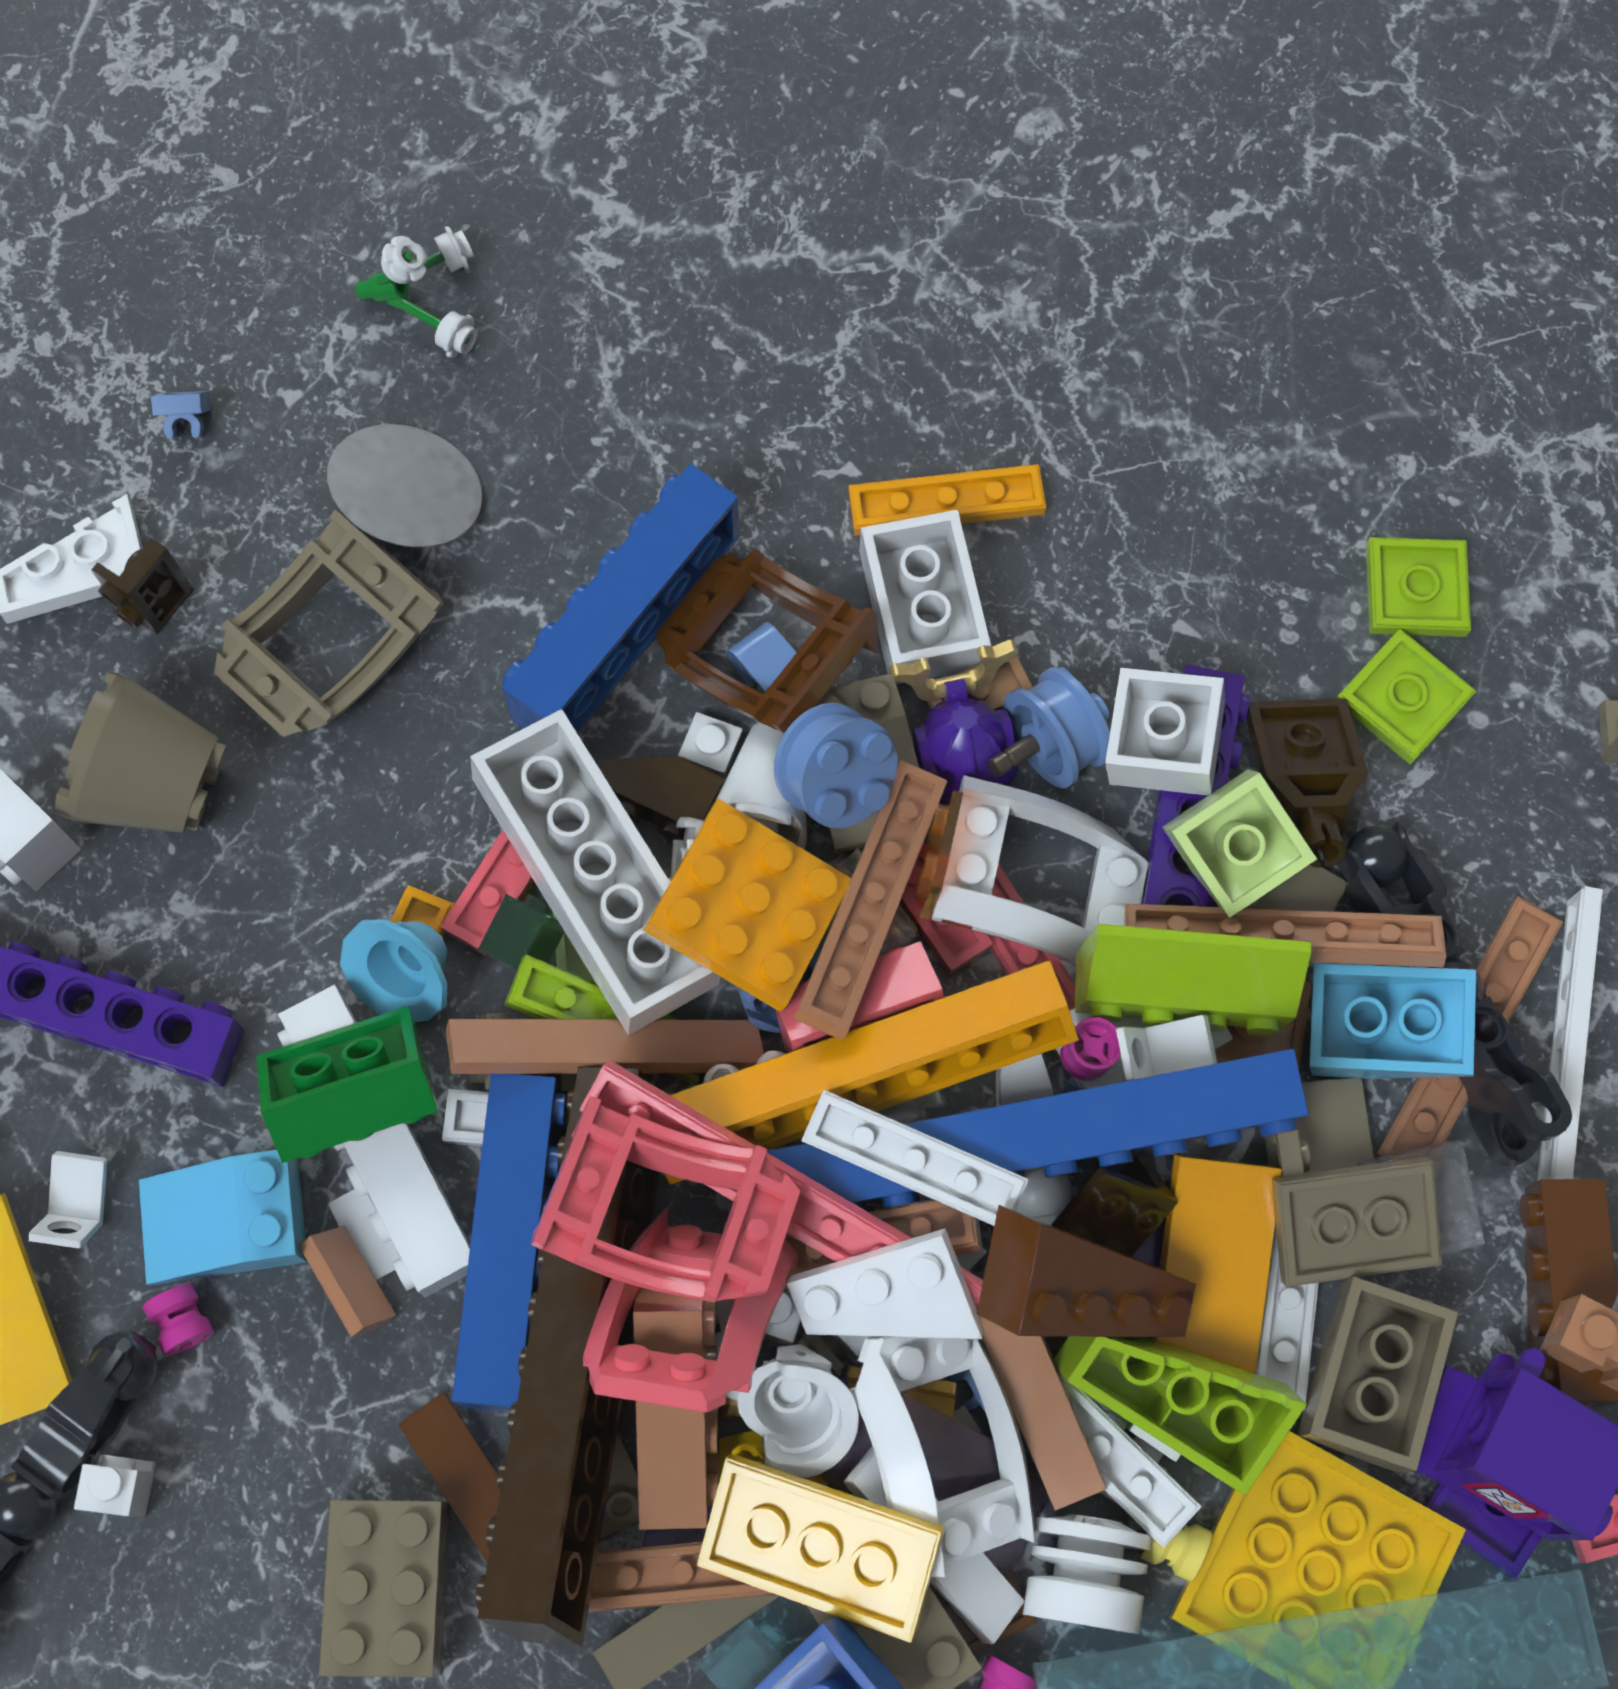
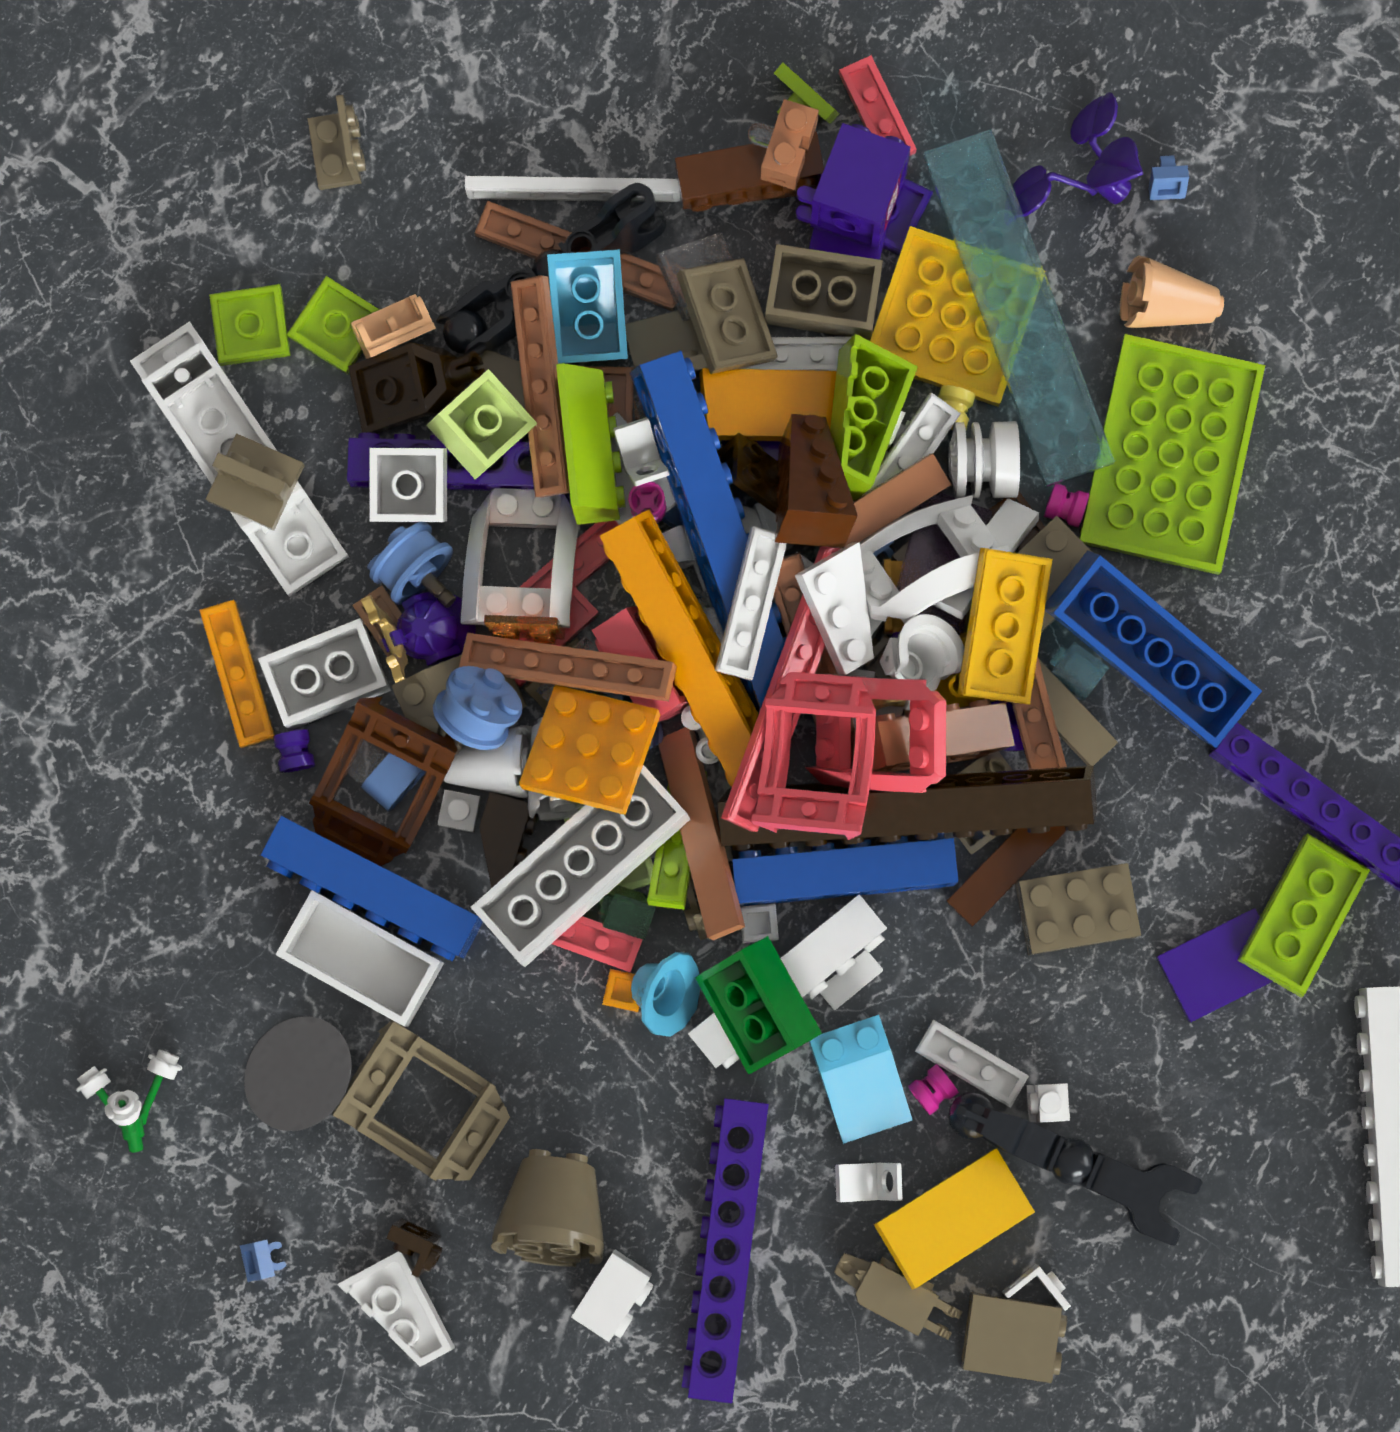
camera: 95 degrees left, 10 degrees up
(203, 1386) = (971, 1063): none -> white tile
(347, 1281) = (886, 981): nougat tile -> none
(527, 576) = (359, 959): none -> white piece
(829, 548) = (294, 751): none -> dark purple wheel
(1198, 531) = (254, 481): none -> dark tan bracket
(1230, 526) = (206, 418): none -> white bracket
(1394, 761) = (392, 326): none -> light nougat hinge

